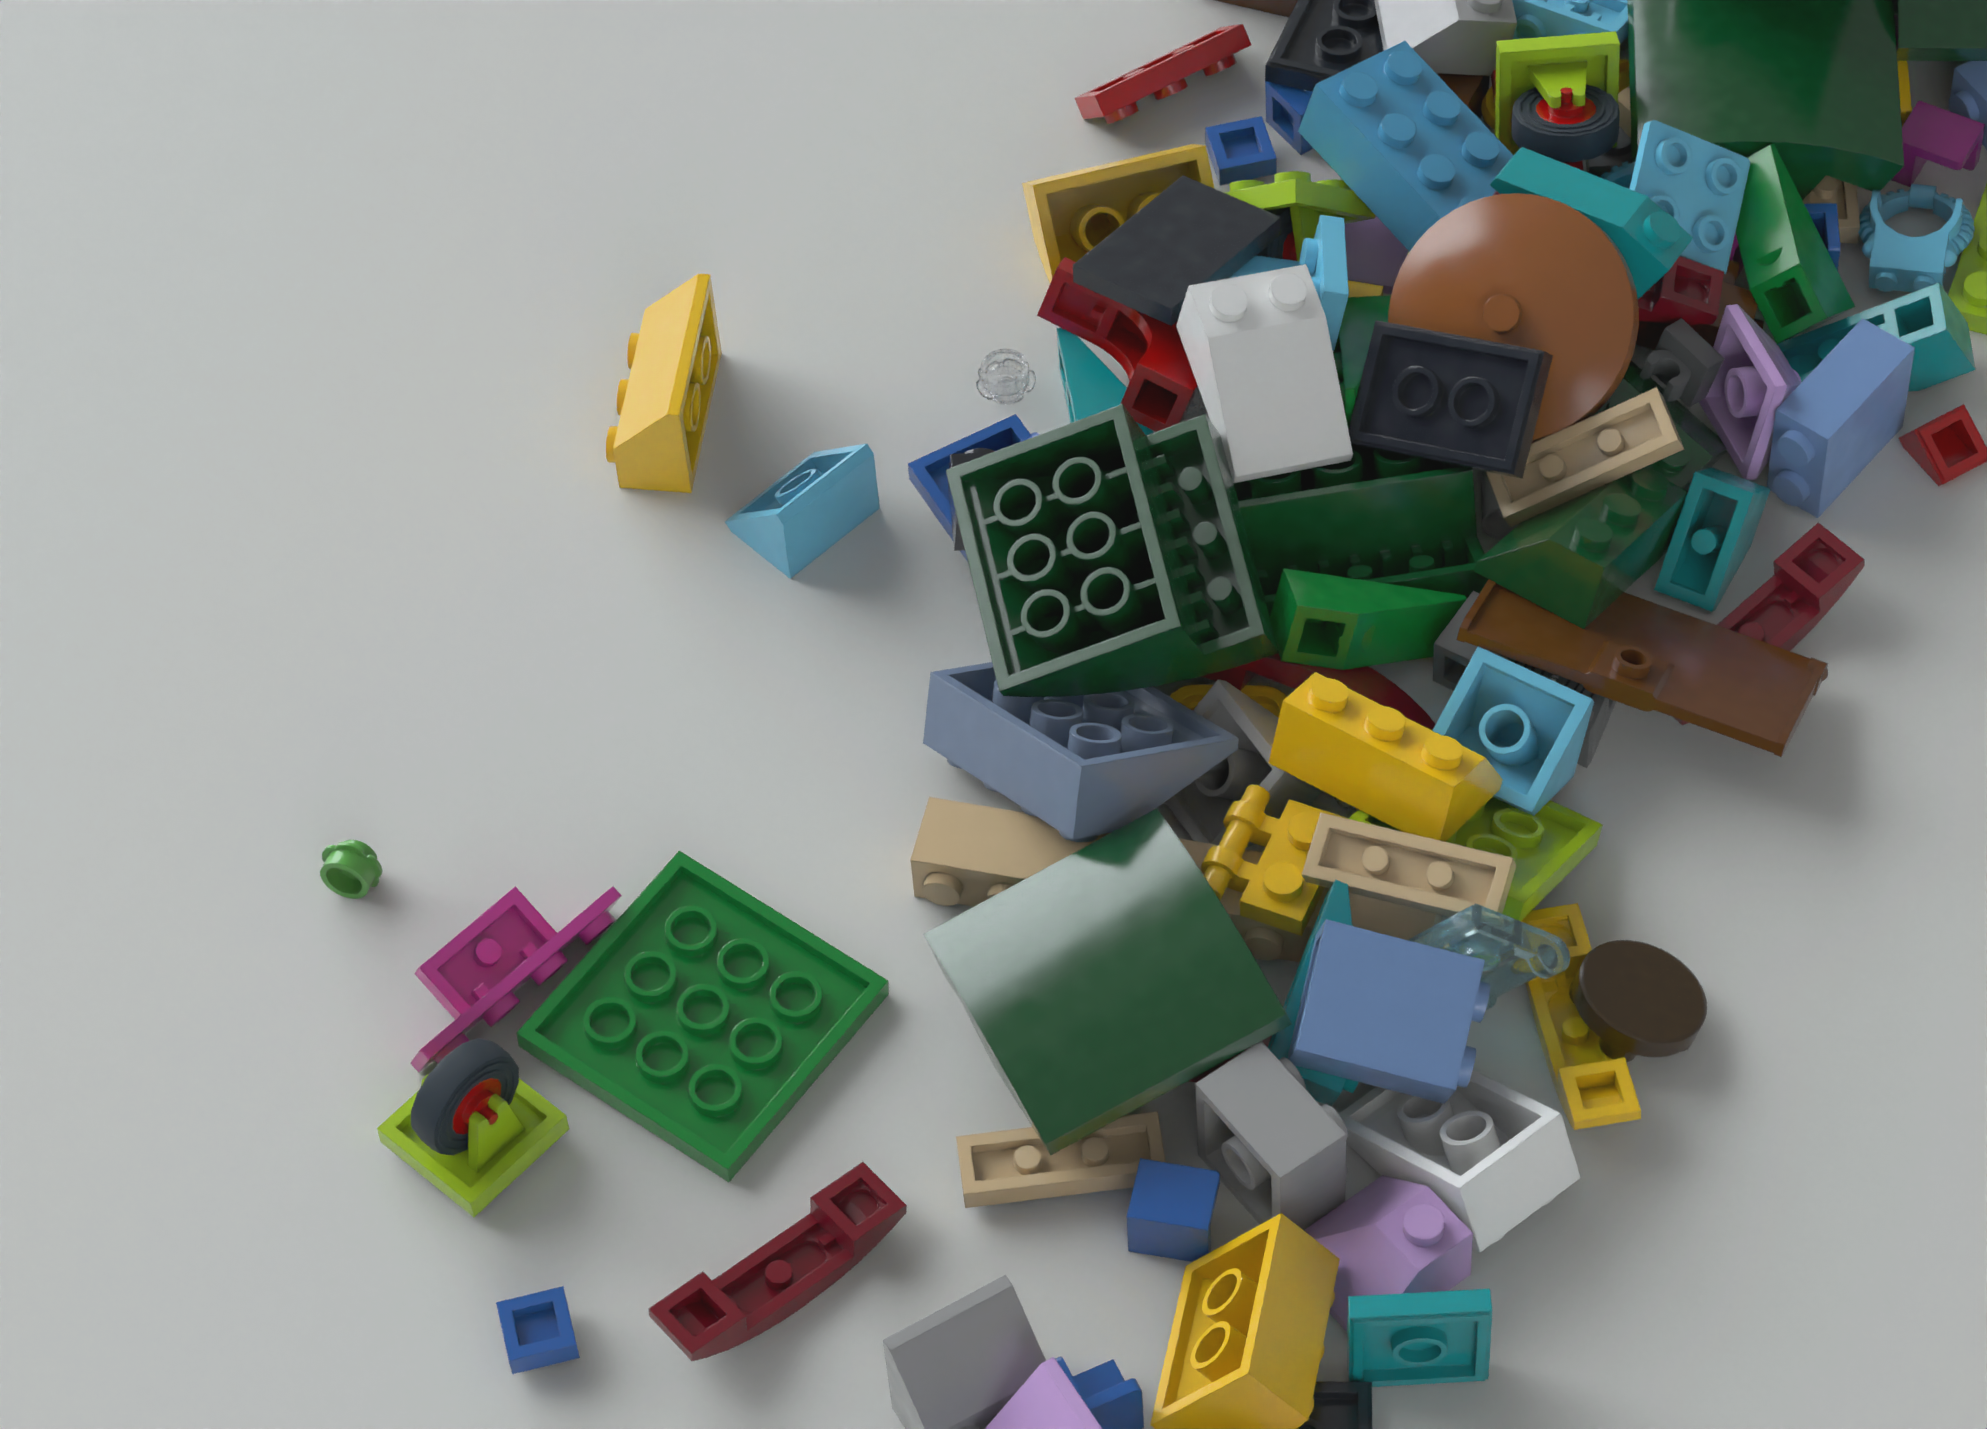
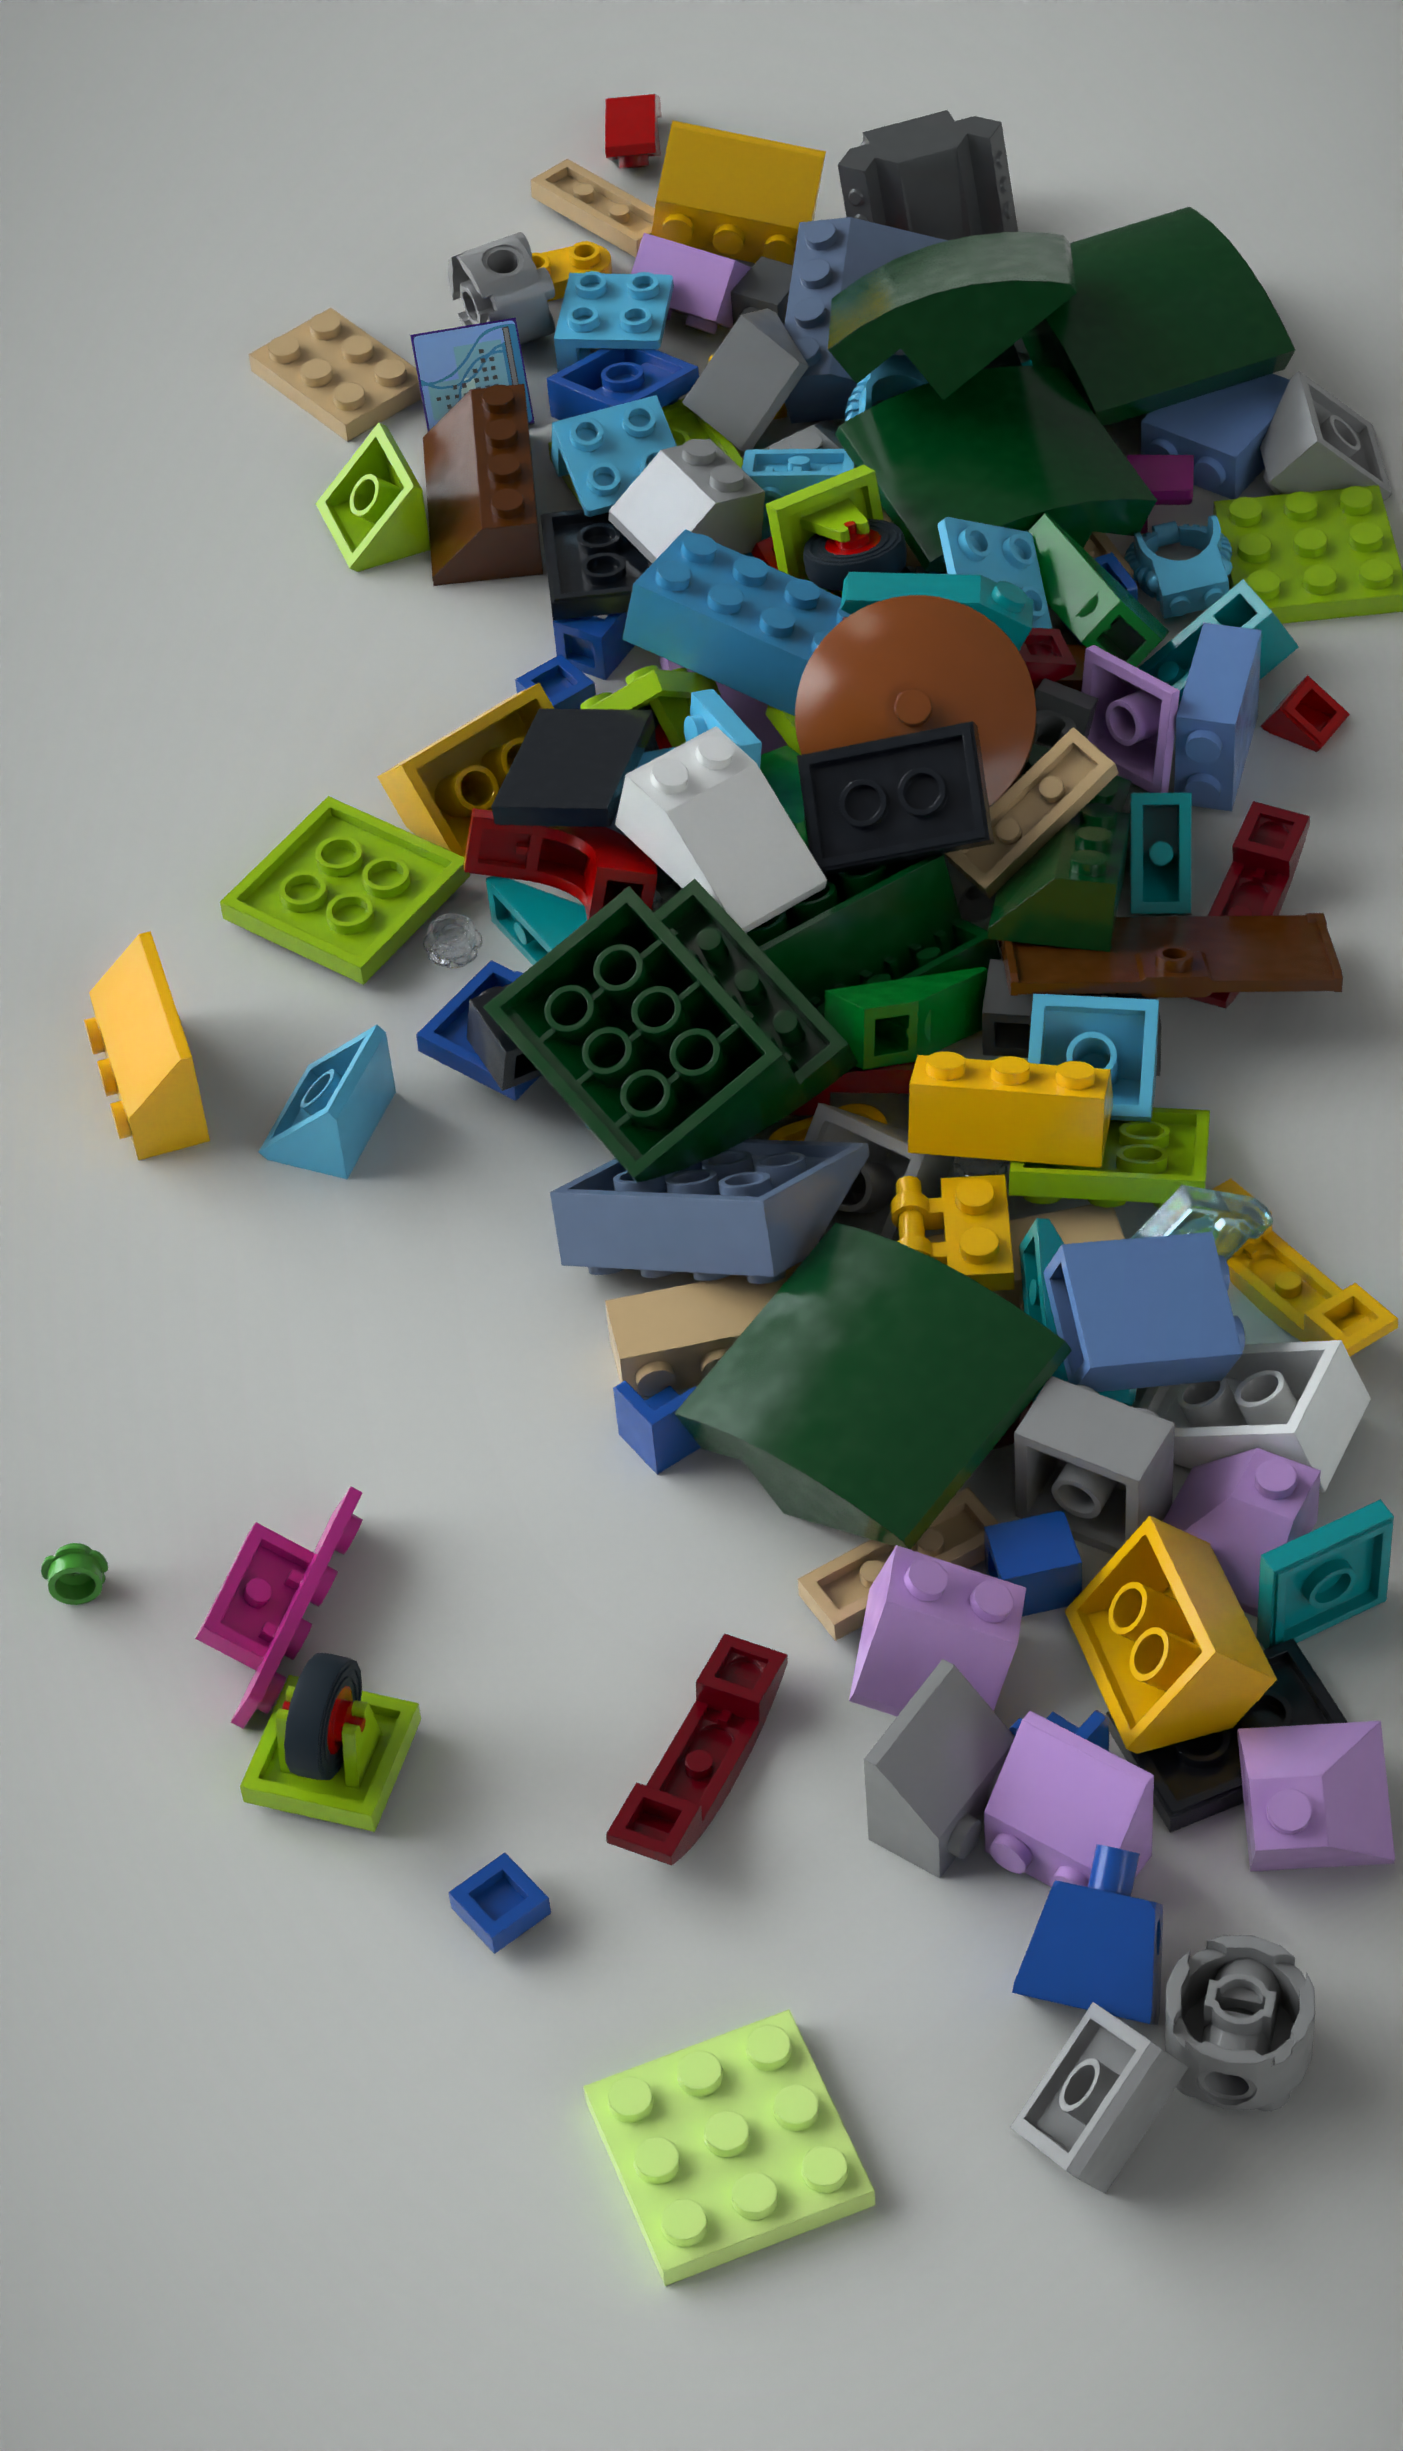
camera: 25 degrees left, 5 degrees down
(703, 1015) = (492, 1571): green plate -> none
(908, 929) = (652, 1426): none -> blue panel
(935, 287) = (345, 889): none -> lime plate
(1048, 1242) = (930, 1613): none -> lavender slope
(1164, 74) = (449, 651): red plate -> none
(1406, 867) = (1090, 1187): tan plate -> none
(1638, 1000) = (1332, 1236): dark brown tile -> none

